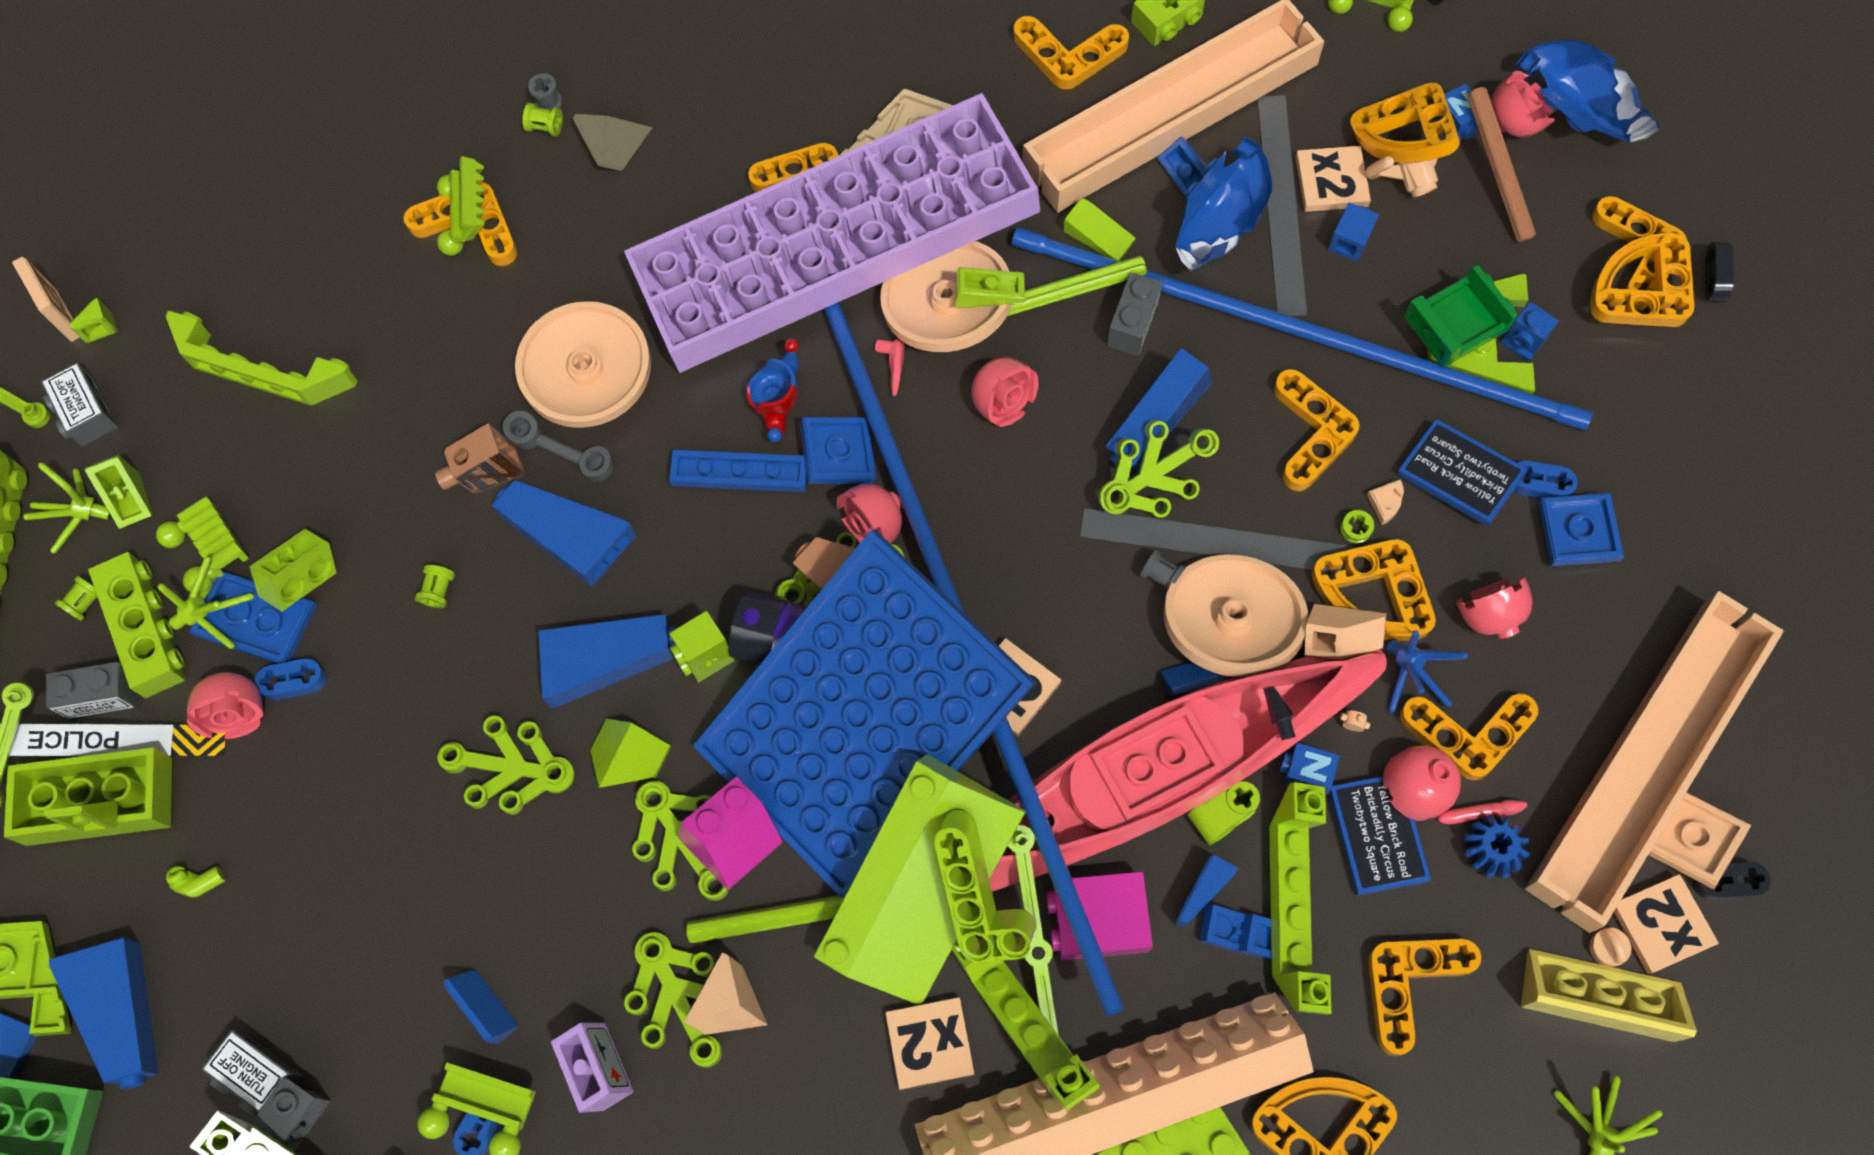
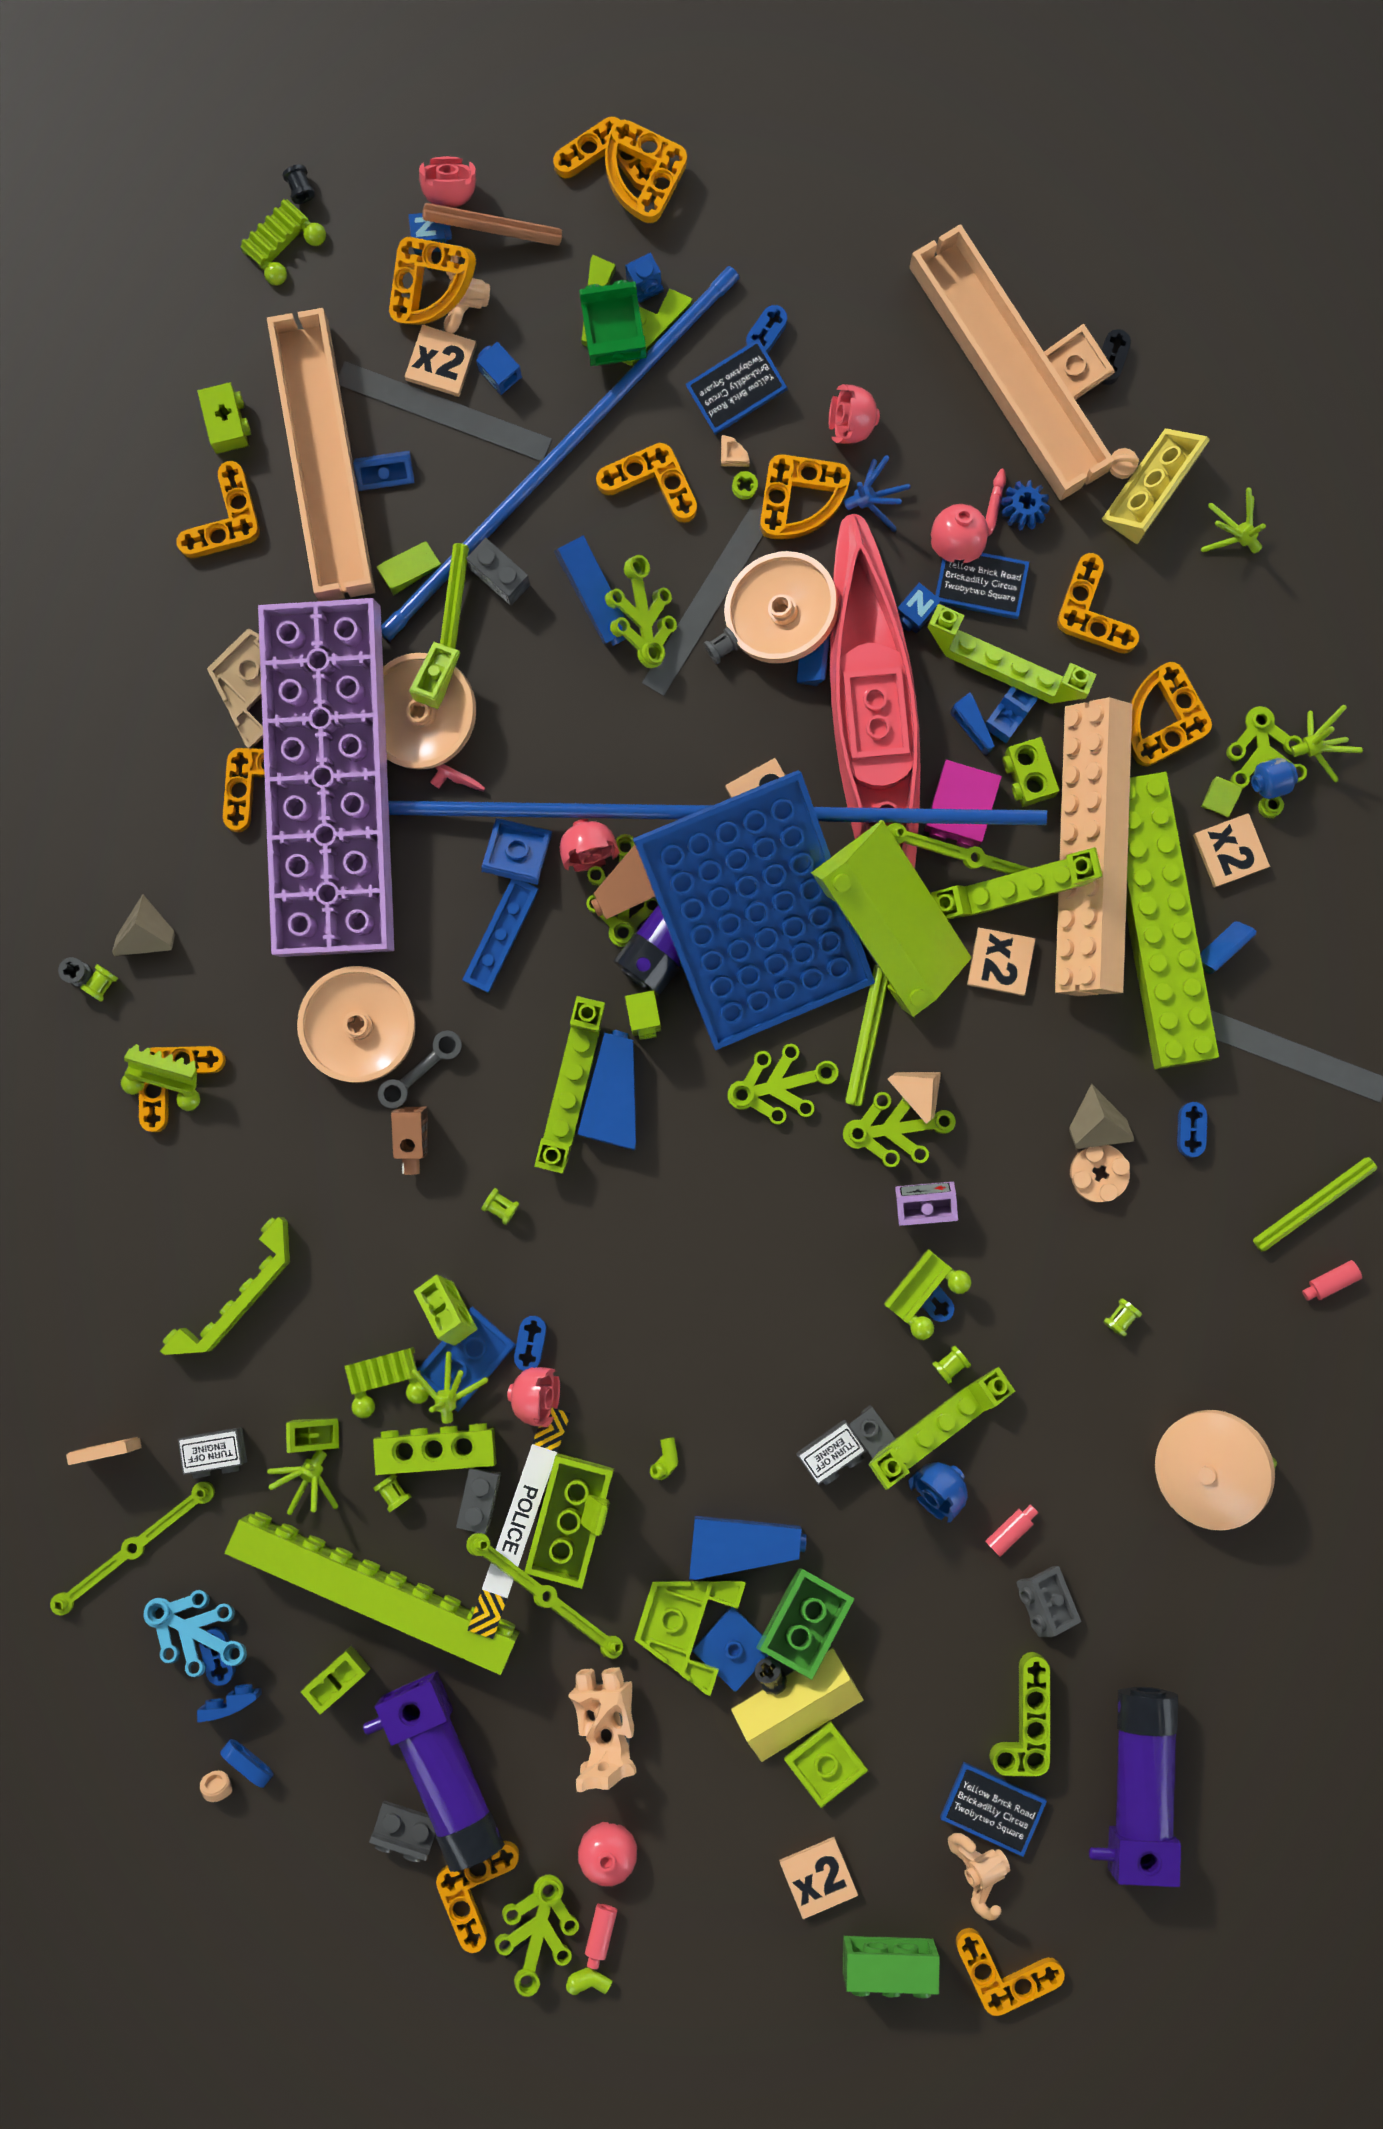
camera: 70 degrees left, 15 degrees up
(94, 322) = (138, 1419): lime slope -> none
(481, 1006) = (847, 1271): blue slope -> none
(510, 768) = (673, 1193): lime plant -> none
(516, 617) = (571, 1085): none -> lime slope
(569, 532) = (496, 1088): blue slope -> none
(626, 753) = (699, 1104): lime slope -> none
(730, 833) = (796, 1045): dark pink slope -> none
(775, 390) = (446, 880): blue piece -> none
(974, 886) = (948, 887): lime beam -> none
(1003, 390) = (519, 702): coral cylinder -> none
(1182, 991) = (1039, 771): none -> lime brick
(1220, 814) = (926, 683): lime piece -> none
(1224, 205) = (434, 448): blue animal -> none
(1279, 713) = (878, 609): black bar -> none
(1343, 632) = (827, 535): light nougat slope -> none
(1354, 721) = (893, 559): light nougat piece -> none
(1478, 745) = (945, 478): light orange beam -> none
(1580, 529) = (817, 323): blue plate -> none
(1590, 89) = (459, 121): blue animal -> none
(1664, 924) = (1123, 417): light nougat tile -> none
(1719, 271) = (654, 108): black beam -> none

